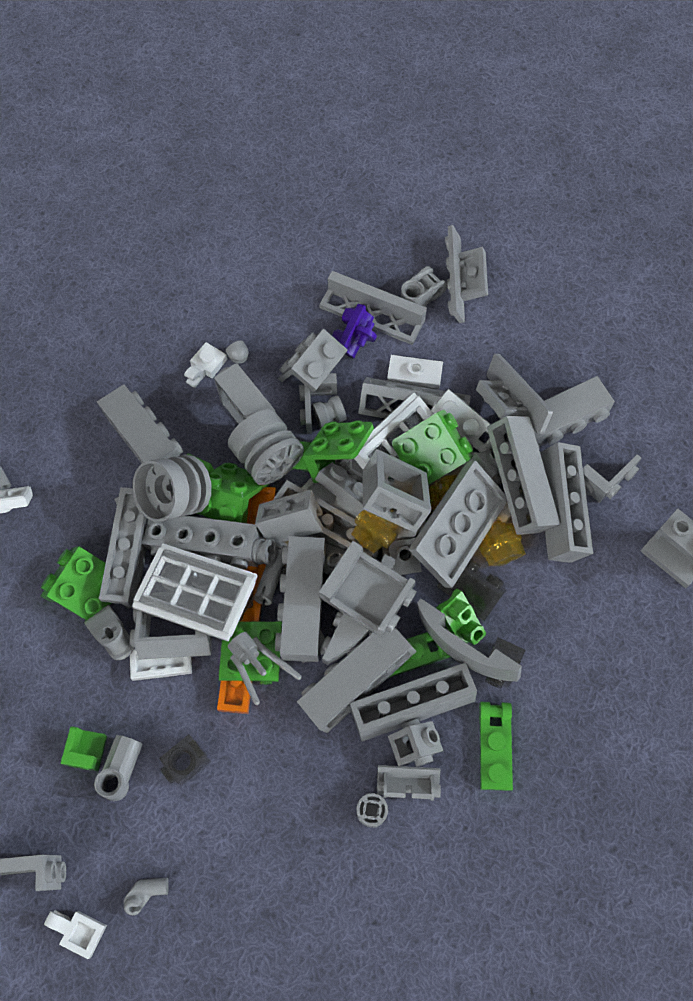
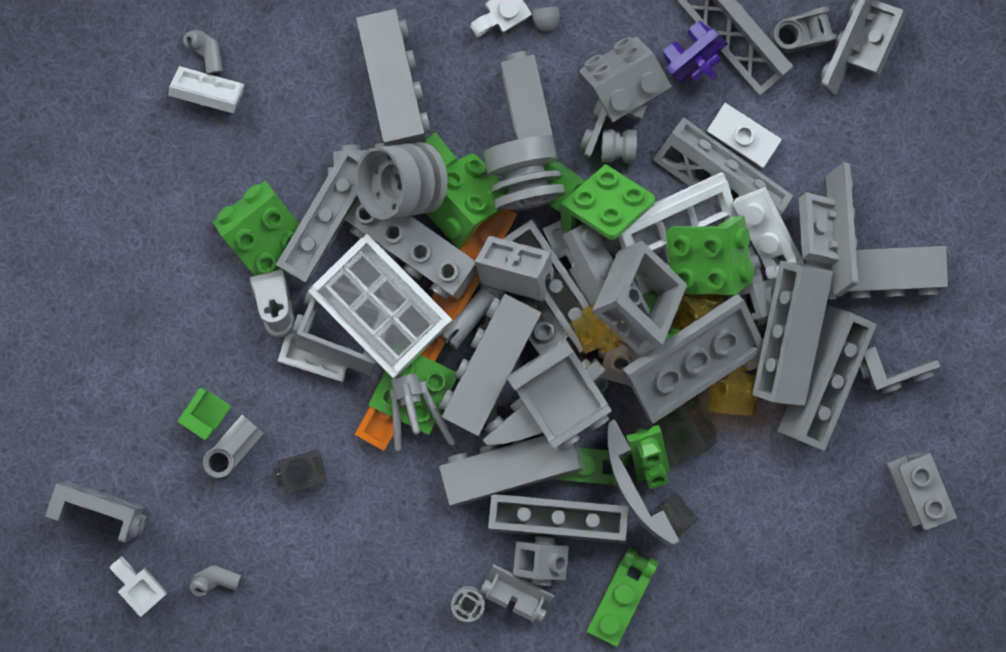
camera: 20 degrees right, 20 degrees up
(264, 551) = (472, 292): light grey bush -> none

